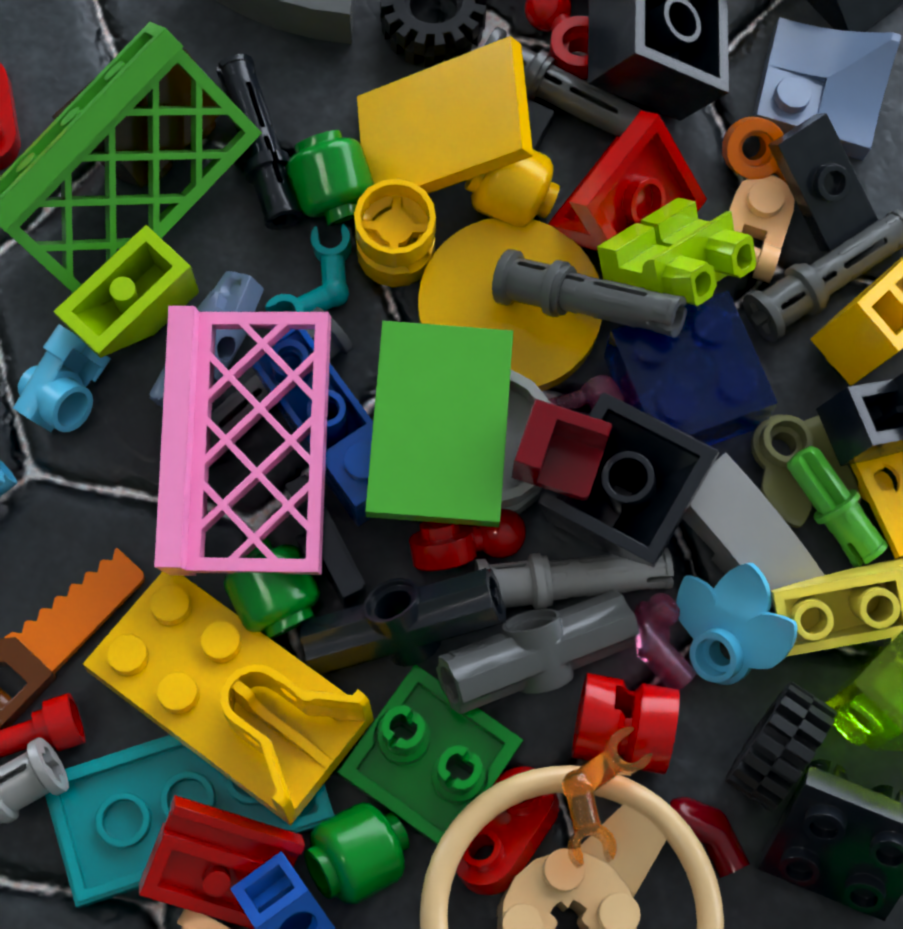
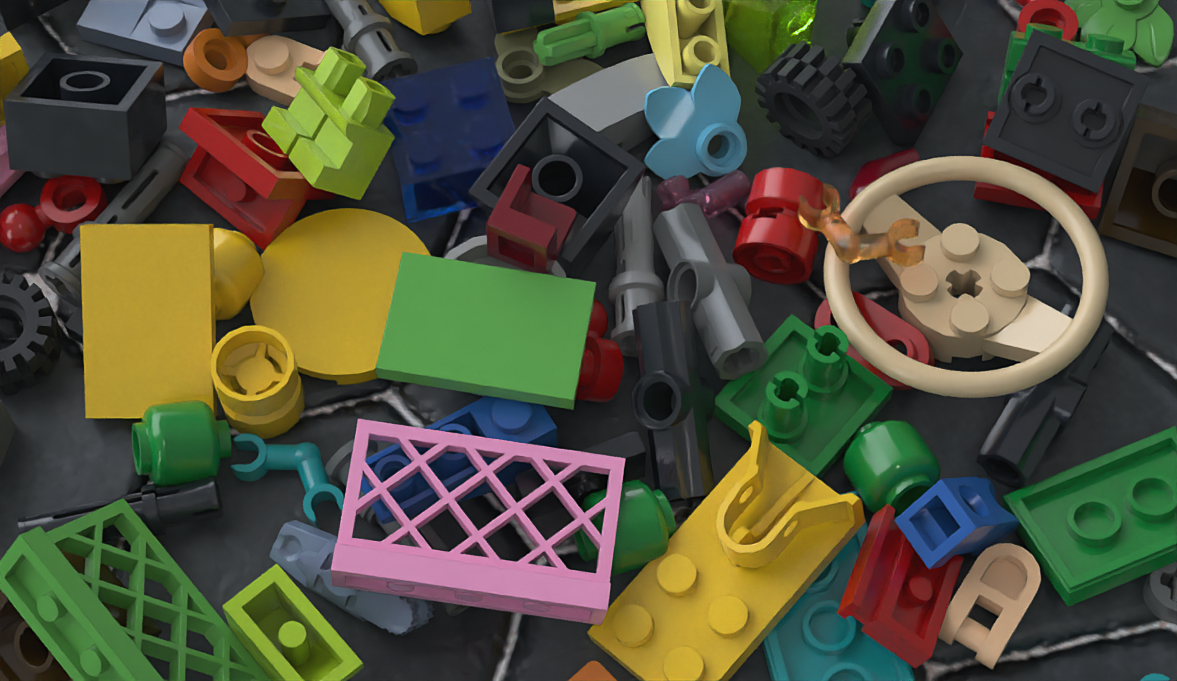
camera: 80 degrees left, 10 degrees down
(561, 290) = (351, 225): dark grey pin -> none
(589, 393) = (452, 221): clear pink hand -> none

